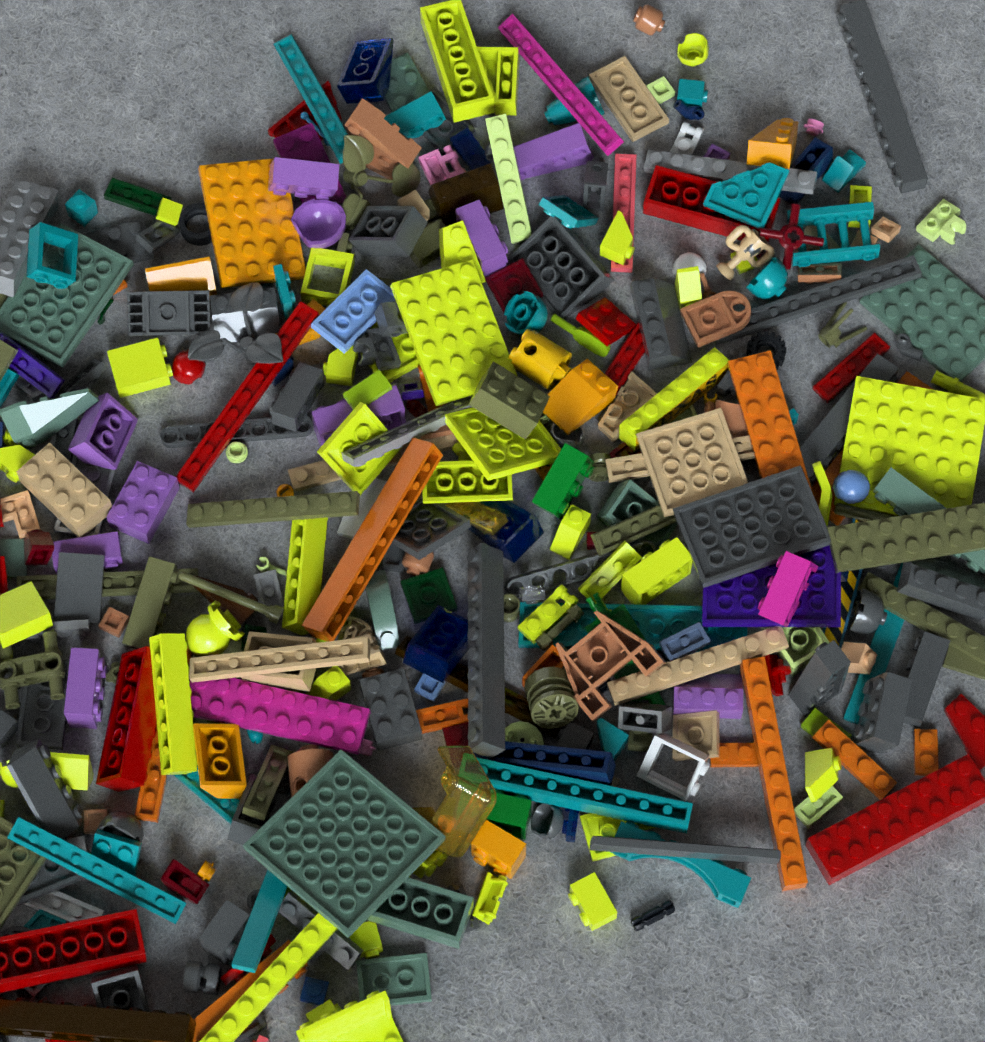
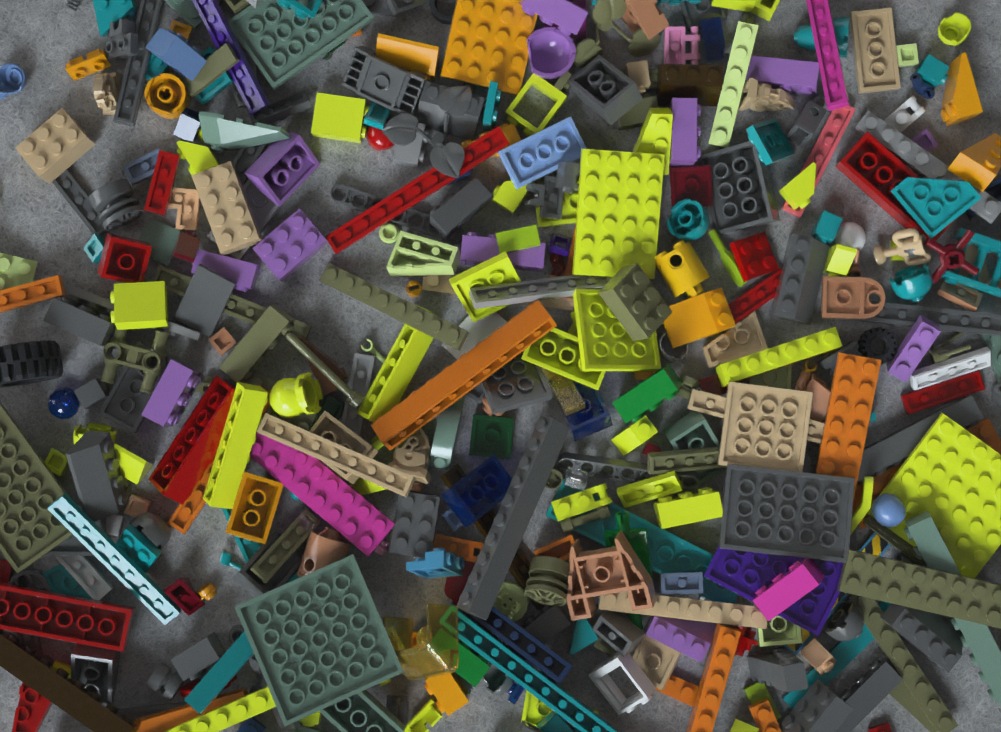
camera: 20 degrees right, 20 degrees up
(176, 346) = (377, 116): none -> teal tile
(211, 833) = (225, 559): none -> teal hand
(223, 369) = (412, 153): none -> light grey brick
(281, 454) = (422, 257): none -> yellowish green wedge
(431, 731) = (437, 564): none -> dark azure plate
(543, 179) = (764, 98): none -> tan piece
(662, 265) = (826, 227): none -> teal brick
(728, 101) = (960, 93): none -> light orange slope
(799, 335) = (913, 348): none -> medium lavender brick
(846, 342) = (950, 368): none -> white tile

